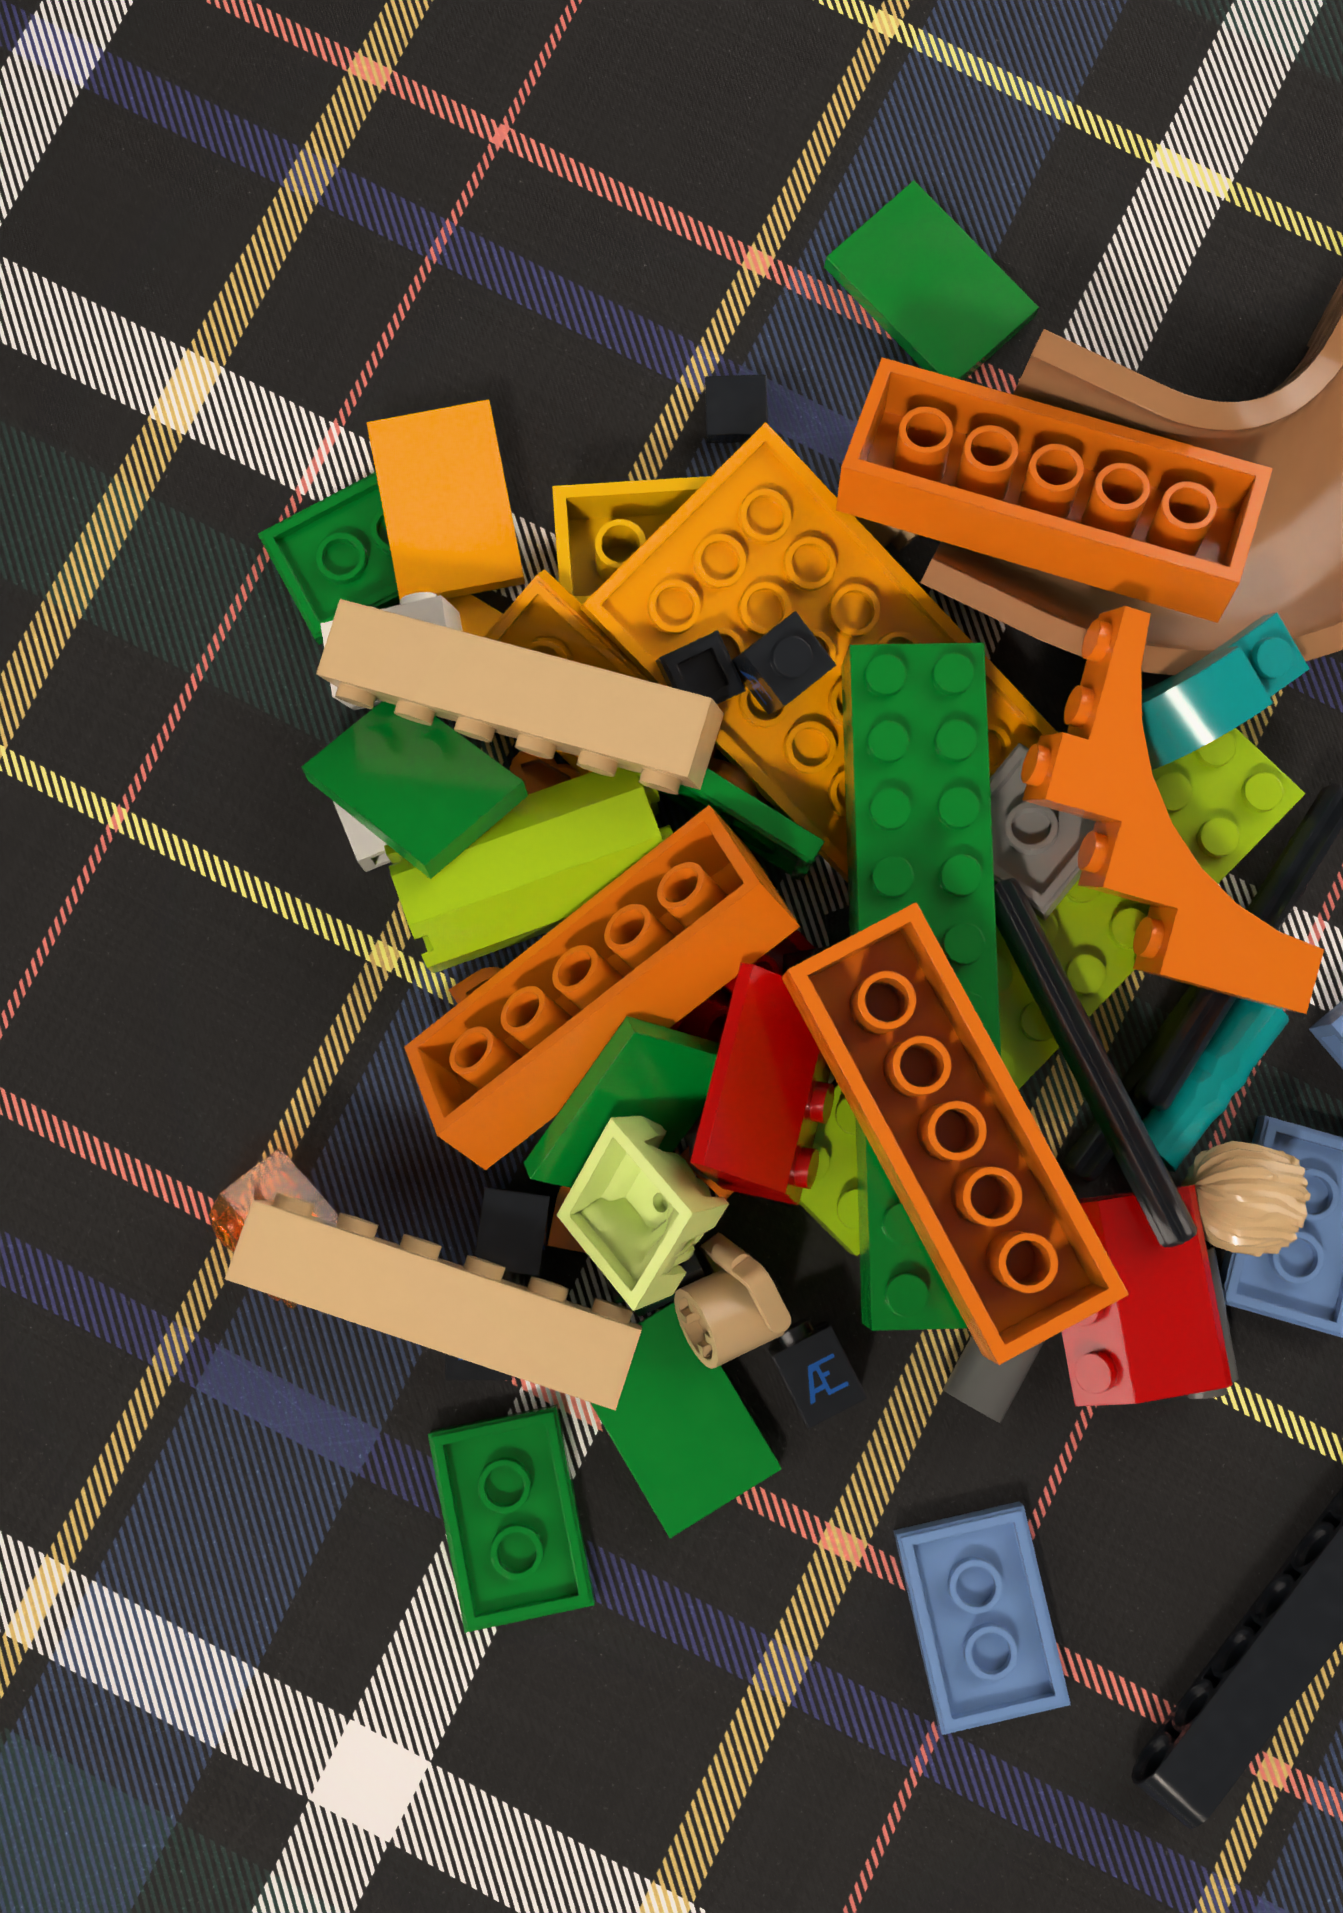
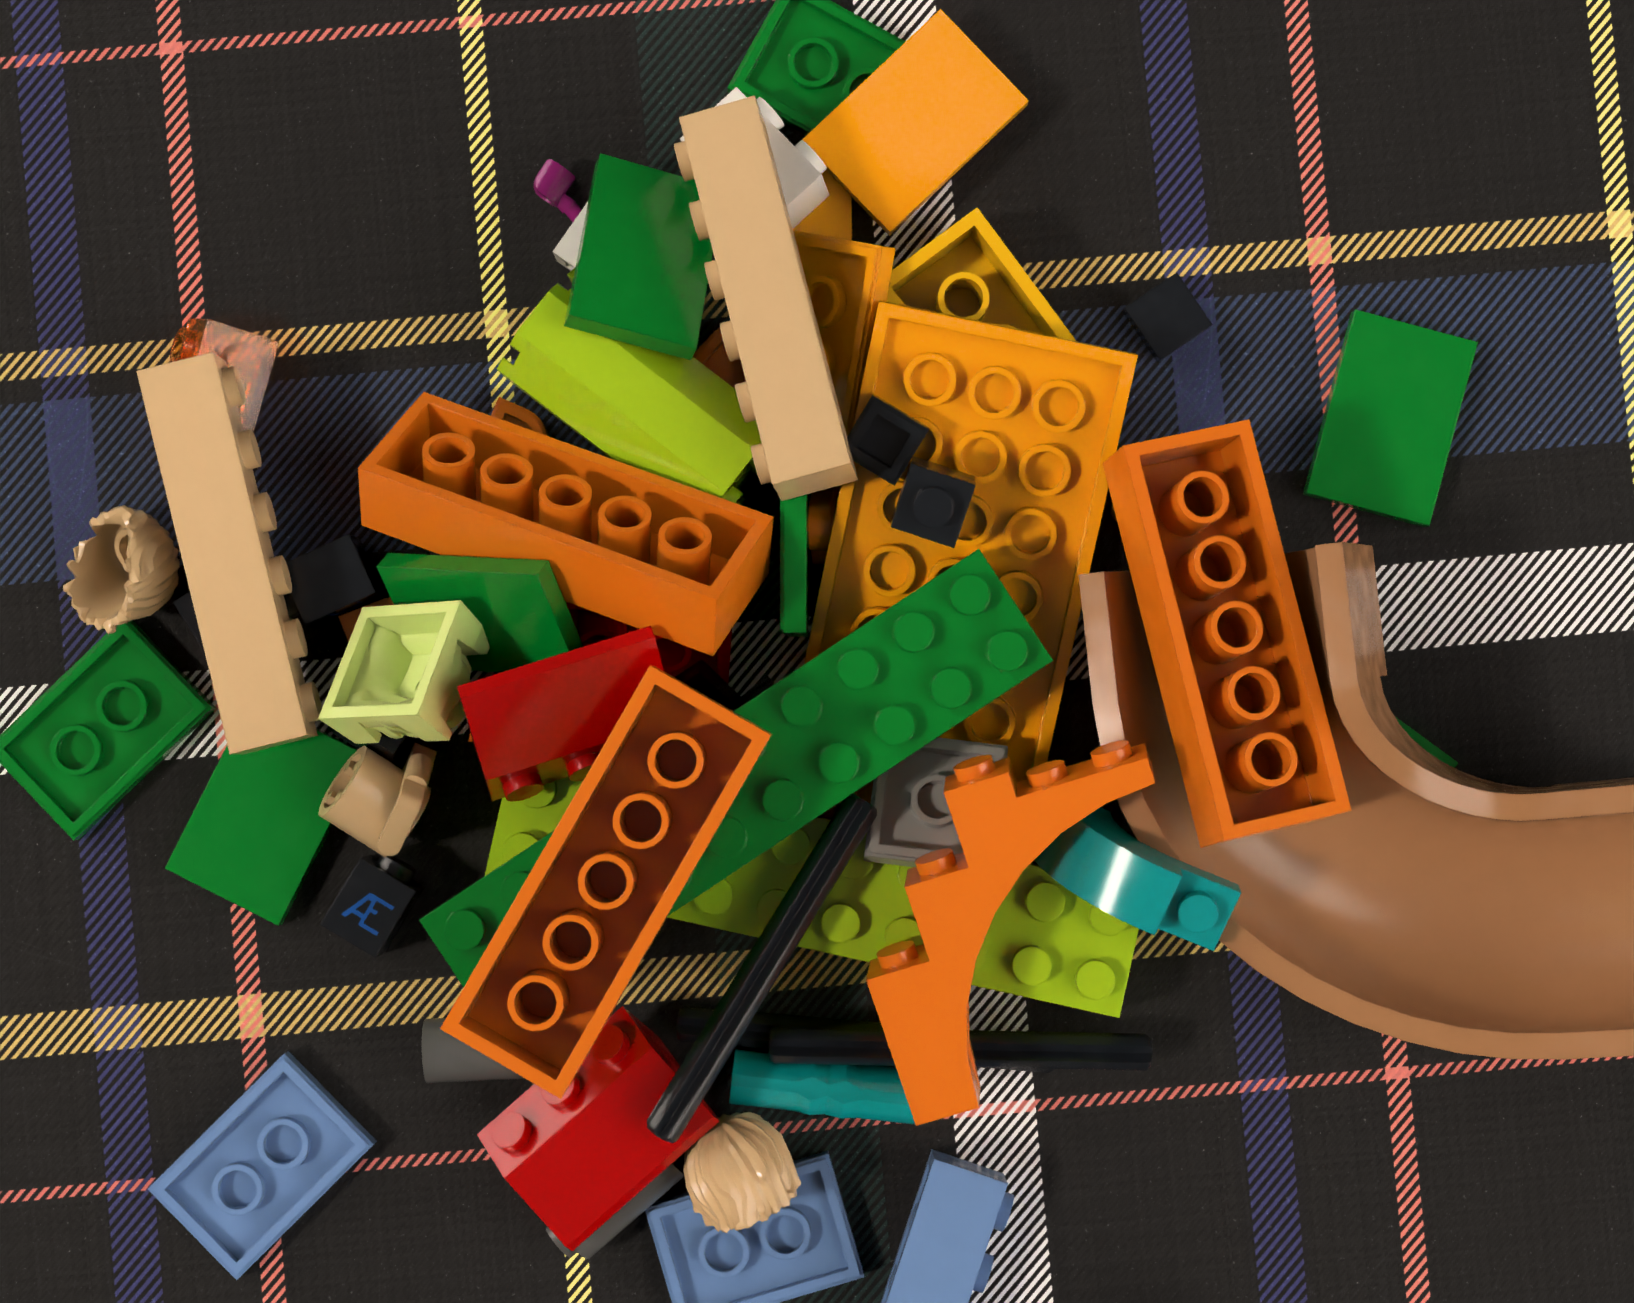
camera: 65 degrees right, 5 degrees up
(300, 835) = (552, 185): none -> magenta hand
(387, 1408) = (123, 569): none -> tan hair

